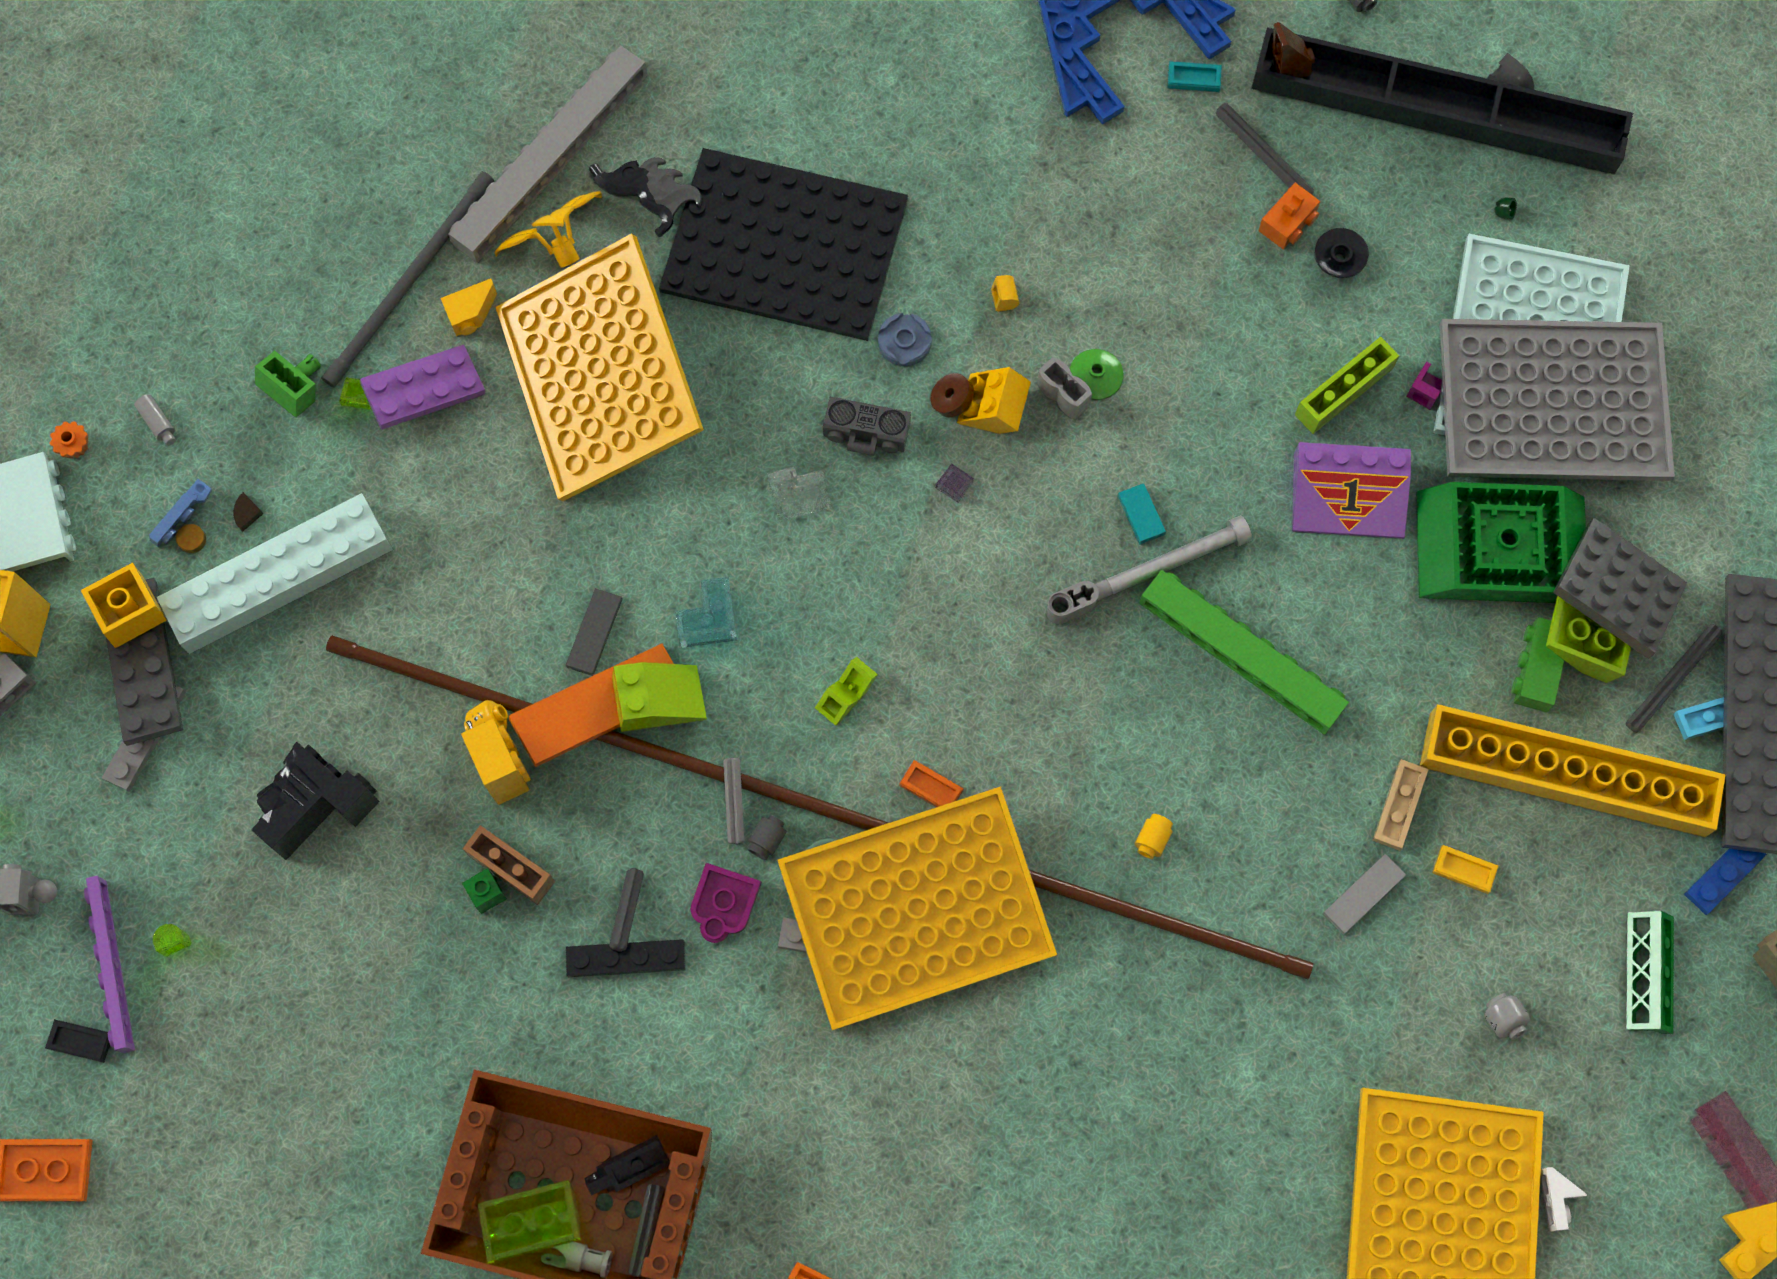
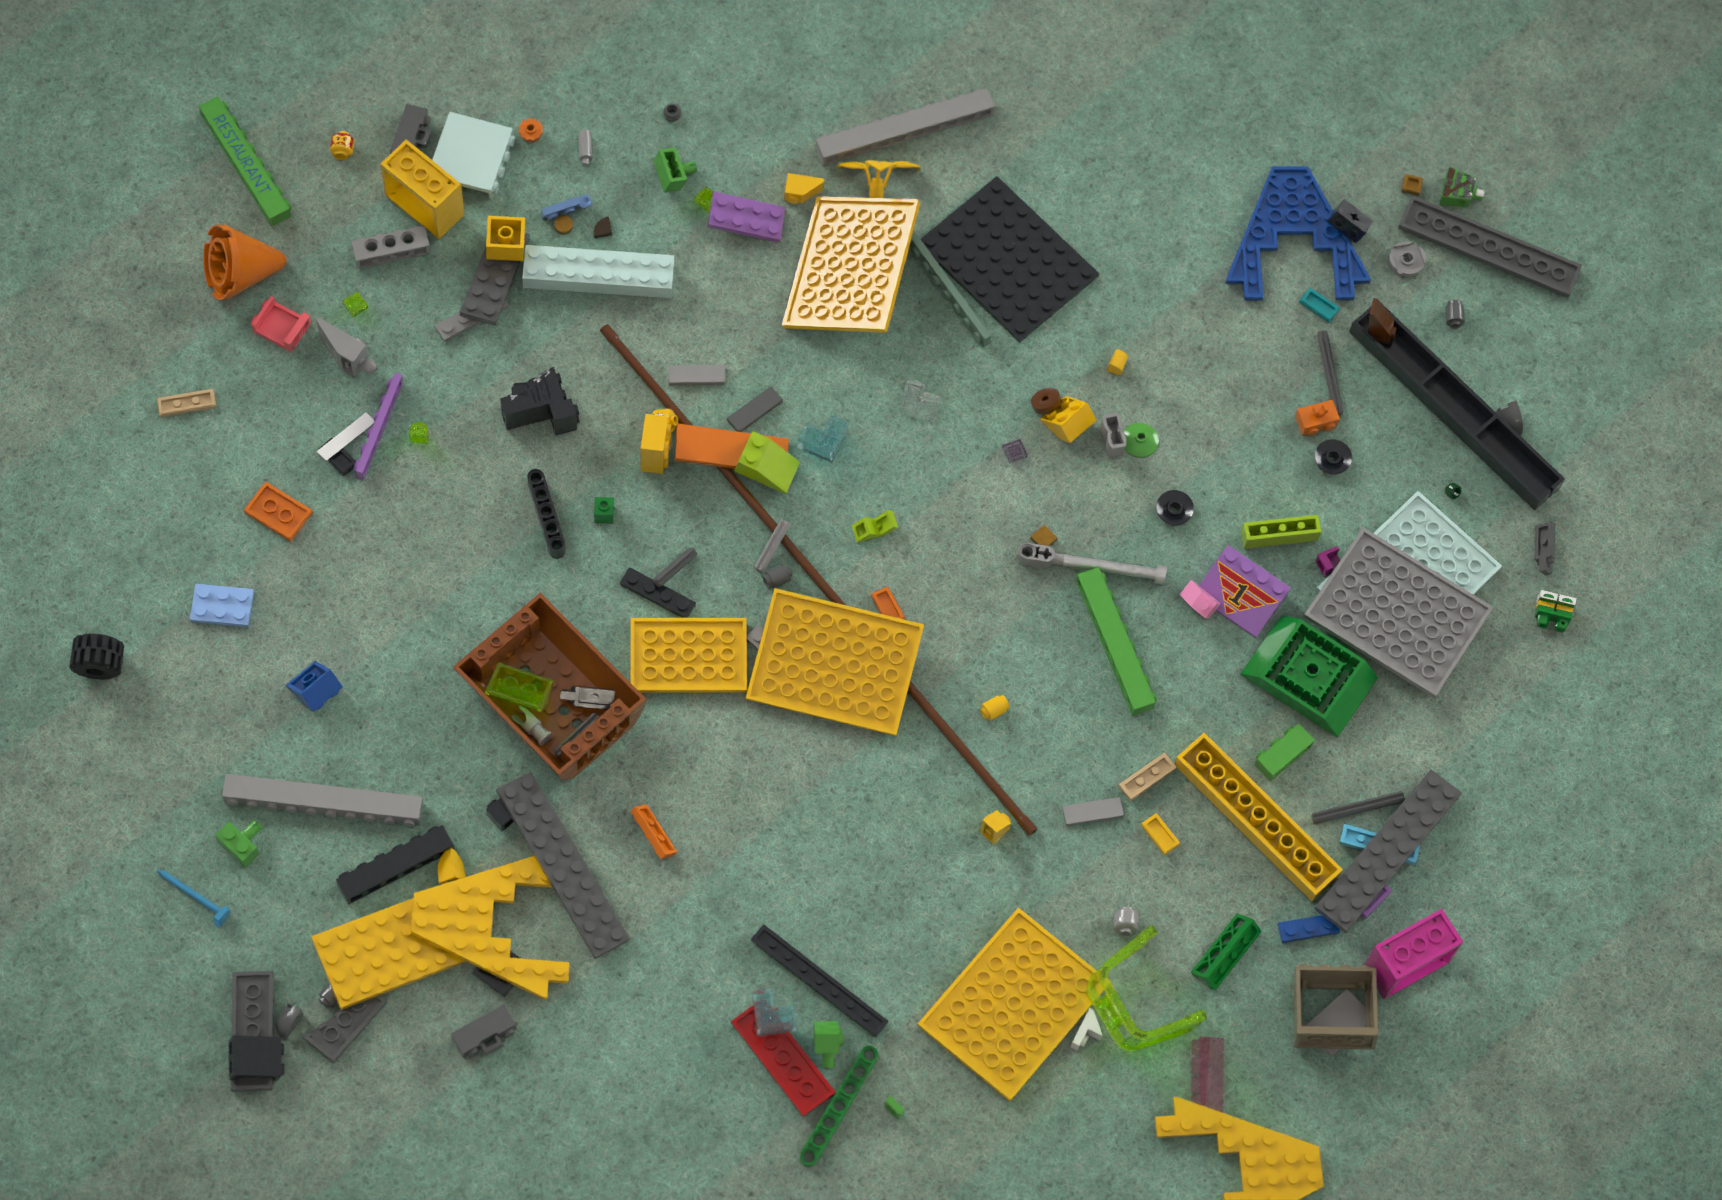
camera: 25 degrees right, 5 degrees down
(73, 1006) = (346, 436): none -> white sticker
(237, 301) = (672, 107): none -> dark grey plate
(342, 363) = (707, 178): dark grey piece -> none
(398, 937) = (546, 505): none -> black beam
(489, 631) = (696, 374): none -> light grey tile
(508, 865) = (626, 504): medium nougat brick -> none
(654, 186) = (953, 181): piece -> none
(719, 1018) = (689, 655): none -> yellow plate
(723, 902) = (730, 596): magenta plate -> none
(743, 328) = (949, 291): none -> sand green plate
(866, 422) = (986, 387): dark grey piece -> none
(904, 339) = (1041, 354): sand blue tile -> none
(1064, 572) = (1043, 537): none -> pearl gold tile
(1141, 513) = (1111, 532): teal tile -> none
(1203, 423) = (1178, 500): none -> black dish
(1263, 996) = (995, 826): none -> yellow slope
(1308, 533) = (1199, 599): none -> bright pink slope
(1585, 1157) = (1115, 1013): none -> clear neon green windscreen
(1586, 644) = (1318, 750): lime slope -> none
(1620, 588) = (1358, 735): dark grey plate -> none
(1660, 210) = (1545, 546): none -> dark grey hinge
(1723, 280) = (1561, 614): none -> green hips

